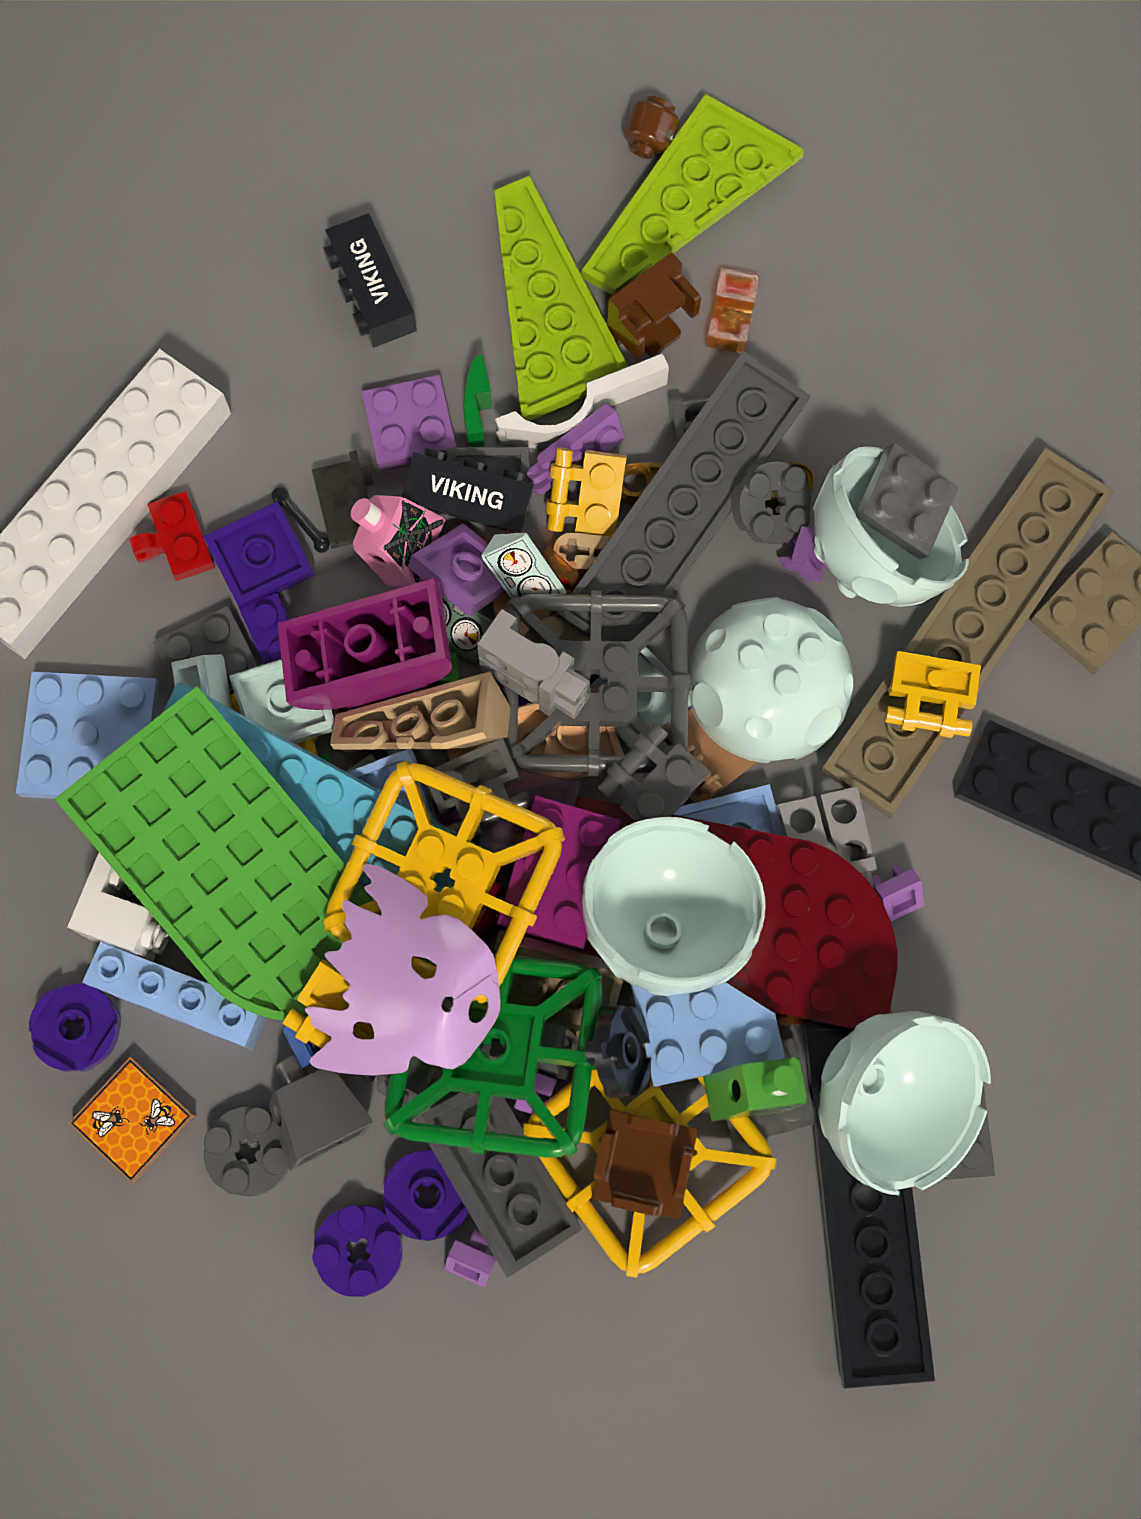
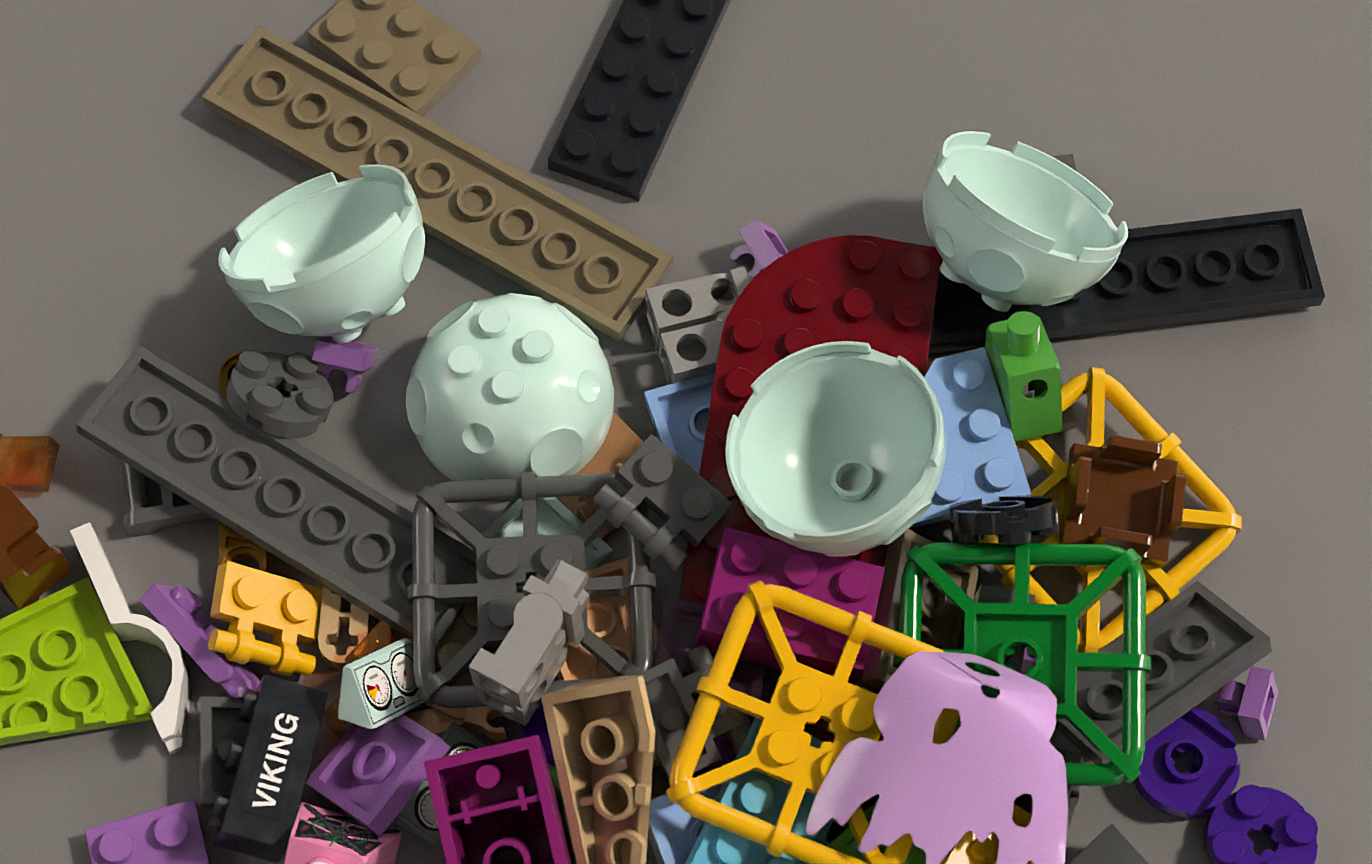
camera: 95 degrees left, 10 degrees down
(476, 398) = (114, 776): green slope -> none
(907, 501) = (285, 228): flat silver plate -> none
(933, 681) = (510, 207): yellow plate -> none

